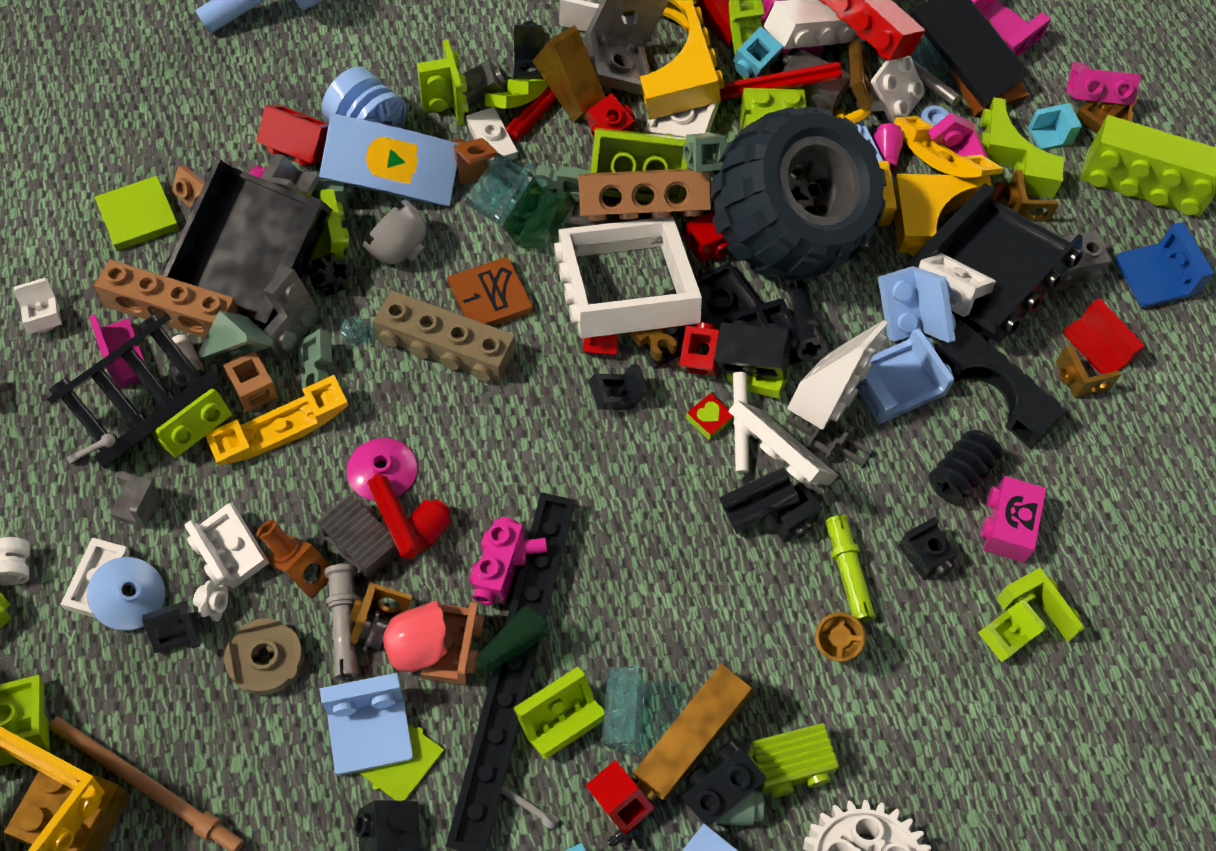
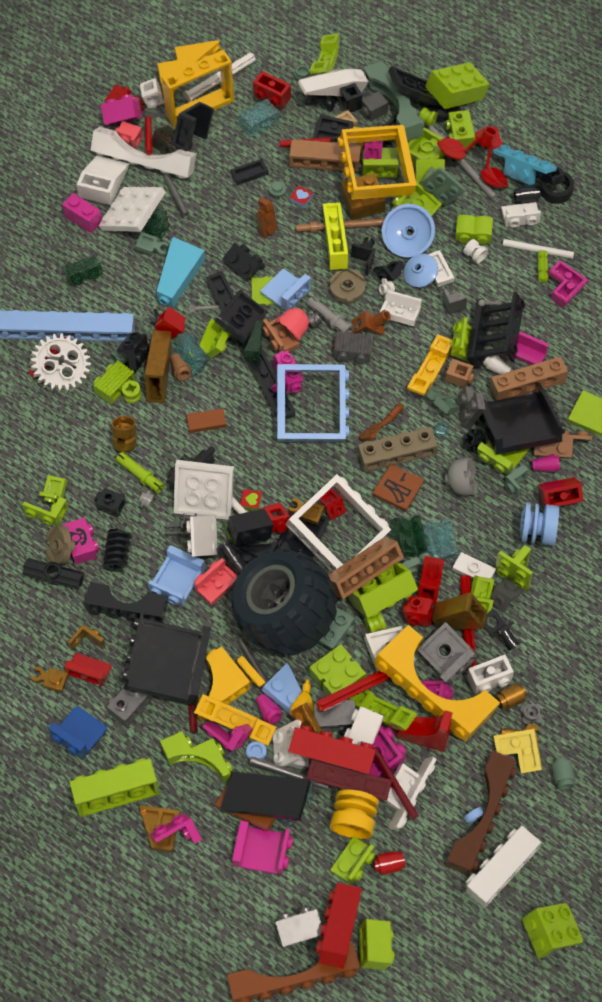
camera: 150 degrees right, 0 degrees up
(38, 306) = (578, 342): white bracket -> none
(72, 653) = (399, 222): none -> light blue dish
(177, 697) = (365, 253): none -> black bracket
(192, 764) = (335, 236): none -> neon yellow slope
(231, 337) = (477, 377): sand green slope -> none
(285, 174) = (531, 458): flat silver panel -> none
(372, 603) = (324, 317): pearl gold bracket -> none
(389, 160) = (498, 503): light blue slope -> none
(394, 516) = (344, 357): red axle -> none
(400, 466) = (372, 390): dark pink dish -> none
(430, 522) = (330, 377): red brick -> none
(440, 390) = (373, 430): none -> dark orange piece
(472, 159) = (468, 538): dark orange bracket -> none
(485, 512) = (343, 410): none -> light blue window
(492, 710) = (241, 316): none -> black tile
(566, 146) = (431, 578): none -> red brick
(618, 390) = (300, 479): black bracket -> none
(659, 707) = (180, 368): none -> medium nougat cone
(668, 38) = (439, 688): none -> dark pink bracket
(683, 586) = (206, 420): none -> dark orange tile
(699, 151) = (345, 588): sand green brick -> none
(757, 54) = (375, 697): medium azure brick -> none
(769, 726) = (129, 395): none -> lime wheel
(845, 325) = (215, 582): none -> coral bracket
(869, 516) = (146, 499): none -> light grey plate
(917, 300) = (189, 609): light blue bracket -> none
(964, 281) = (180, 635): white bracket -> none
(1017, 199) = (172, 717): pearl gold bracket -> none
(1054, 126) = (186, 790): medium azure panel -> none
(1056, 525) = (59, 545): none -> dark tan plate
(1097, 510) = (42, 570): none -> black piece
(1160, 360) = (53, 679): none -> pearl gold plate

